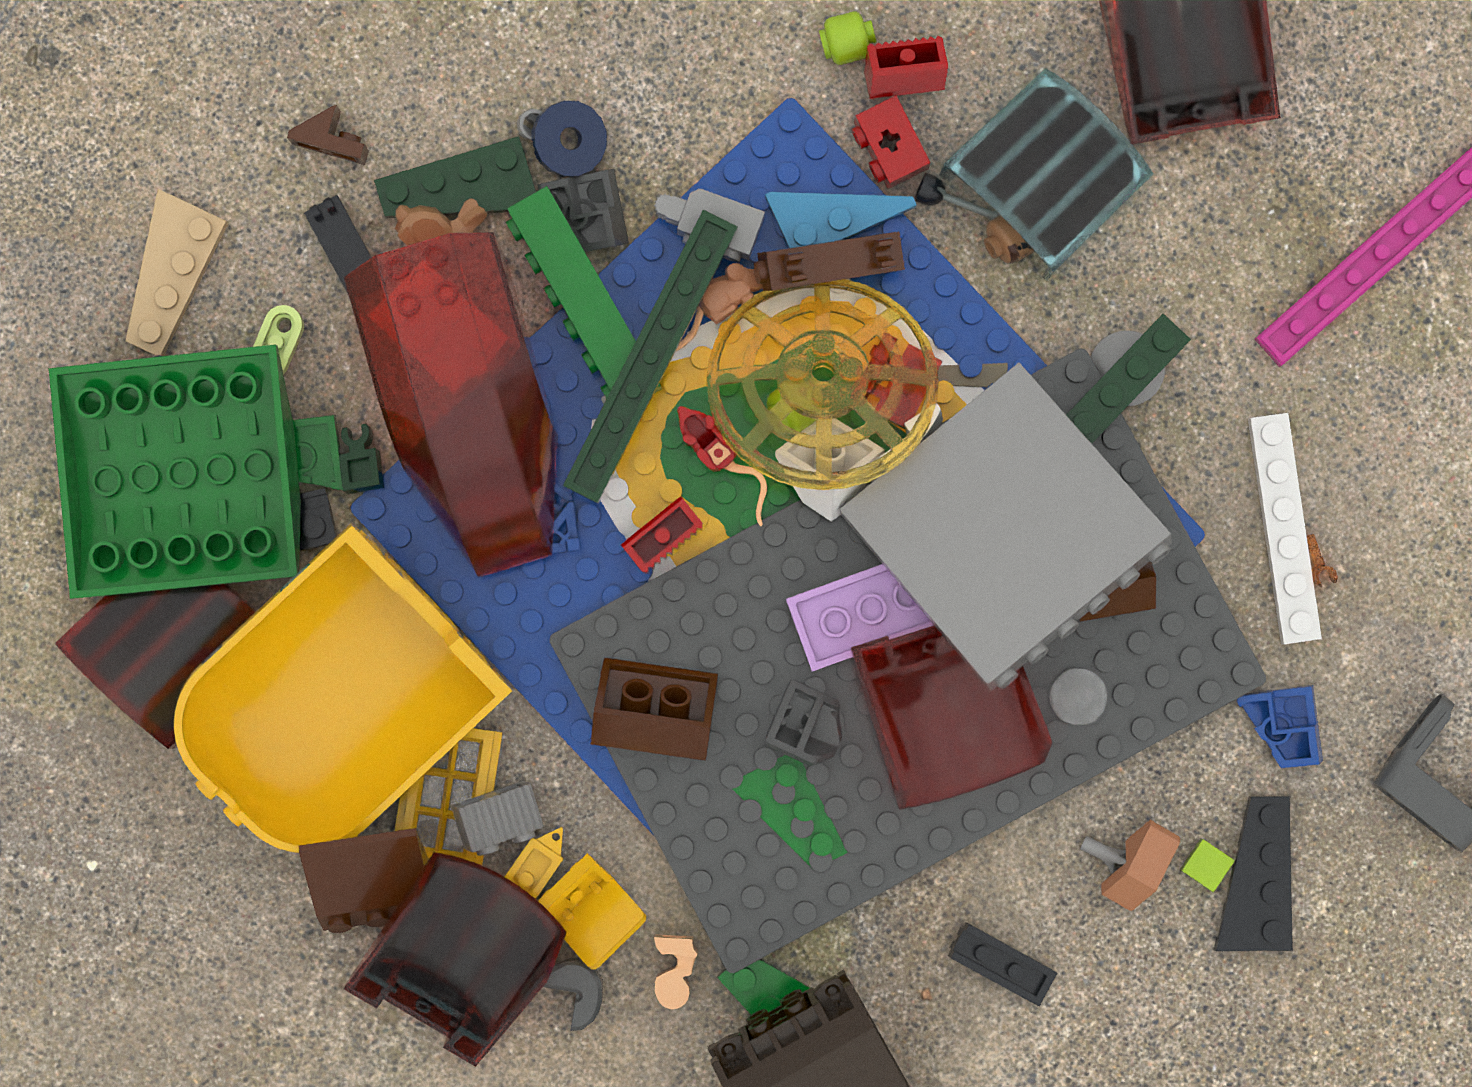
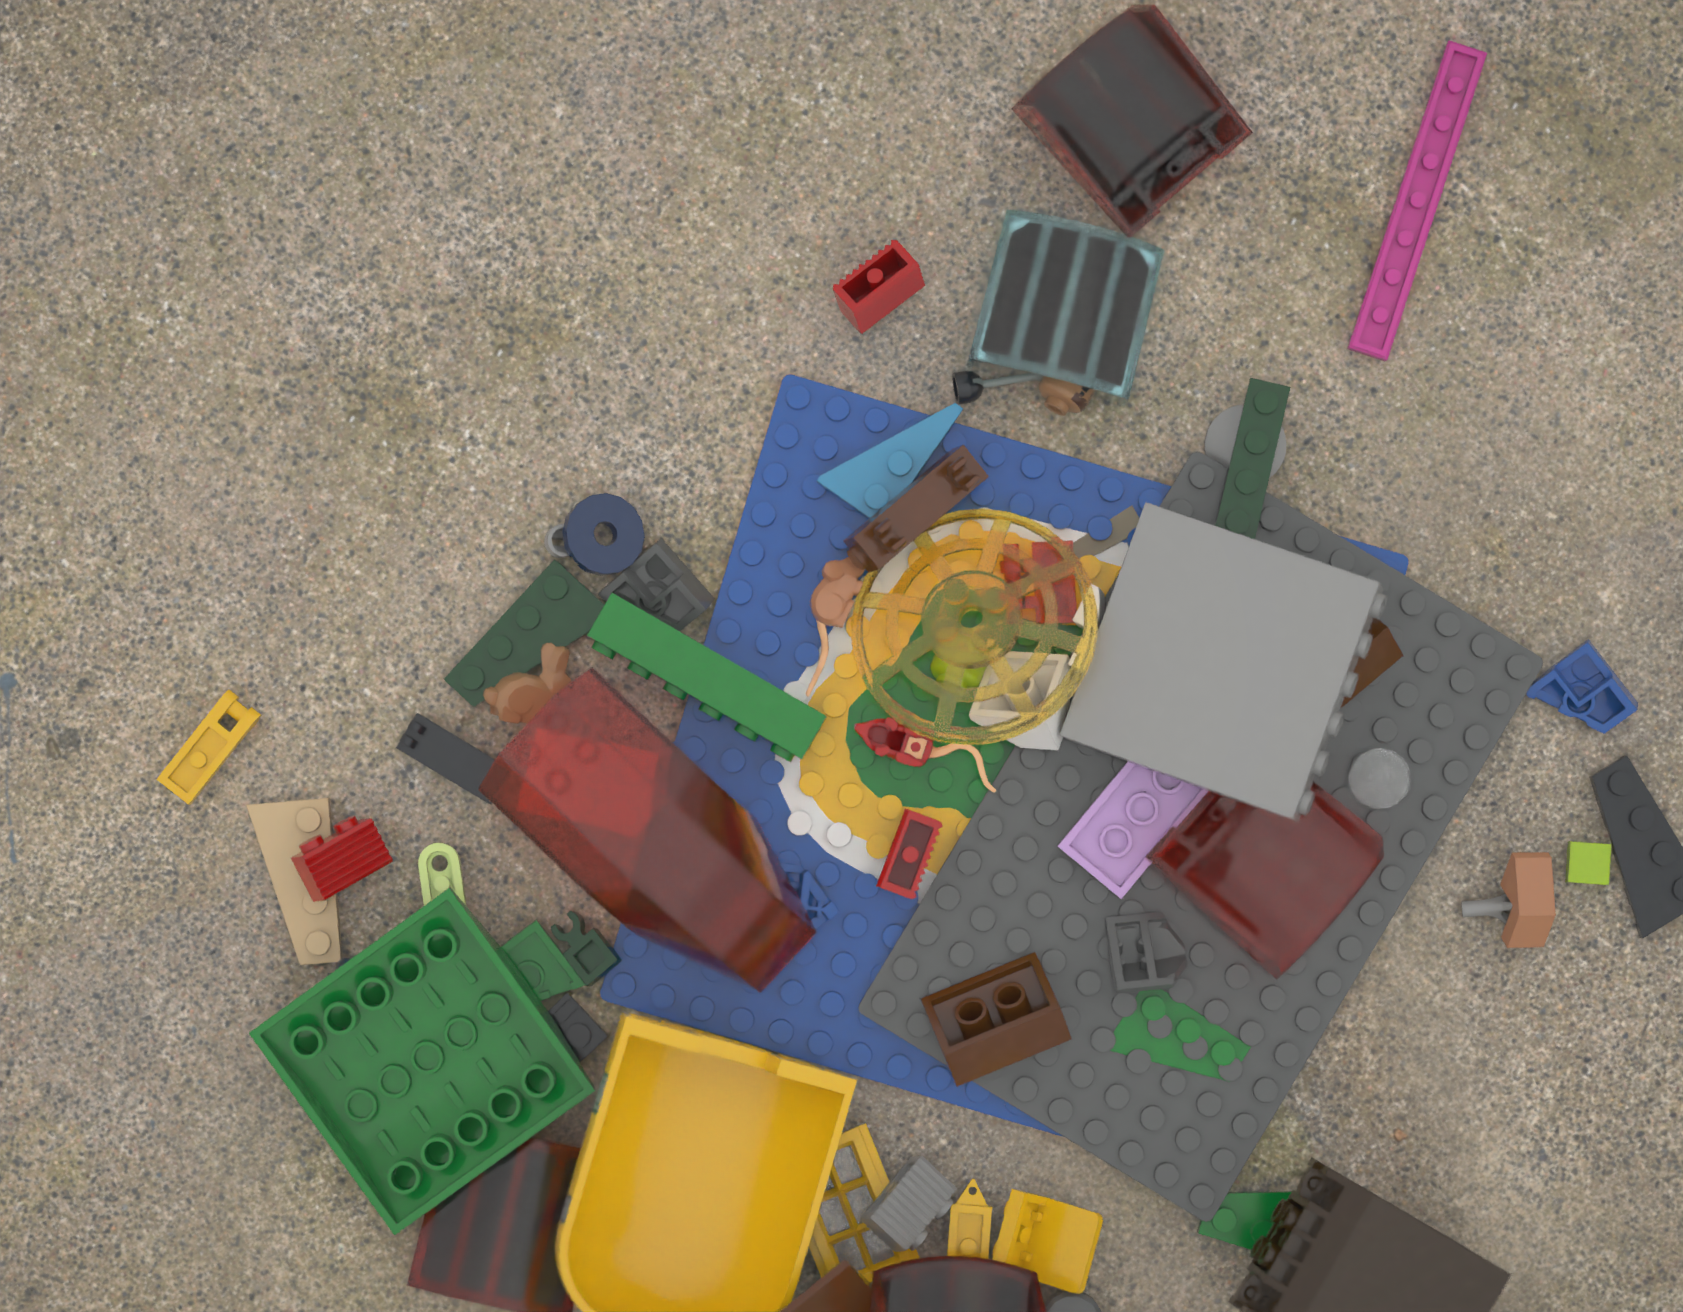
camera: 30 degrees left, 0 degrees up
(154, 126) = (208, 748): none -> yellow plate
(206, 273) = (340, 858): none -> red brick
(319, 136) = (368, 668): reddish brown slope -> none
(650, 356) = (802, 695): dark green plate -> none
(671, 985) = (1159, 1264): light nougat leg -> none
(686, 213) = (785, 534): light grey hinge -> none
(846, 37) = (806, 289): lime head -> none
(890, 121) = (894, 343): red brick -> none
(1002, 964) = (1453, 1065): black hinge -> none
(1284, 528) = (1478, 509): white plate -> none
(1319, 563) = (1527, 522): clear orange hand -> none

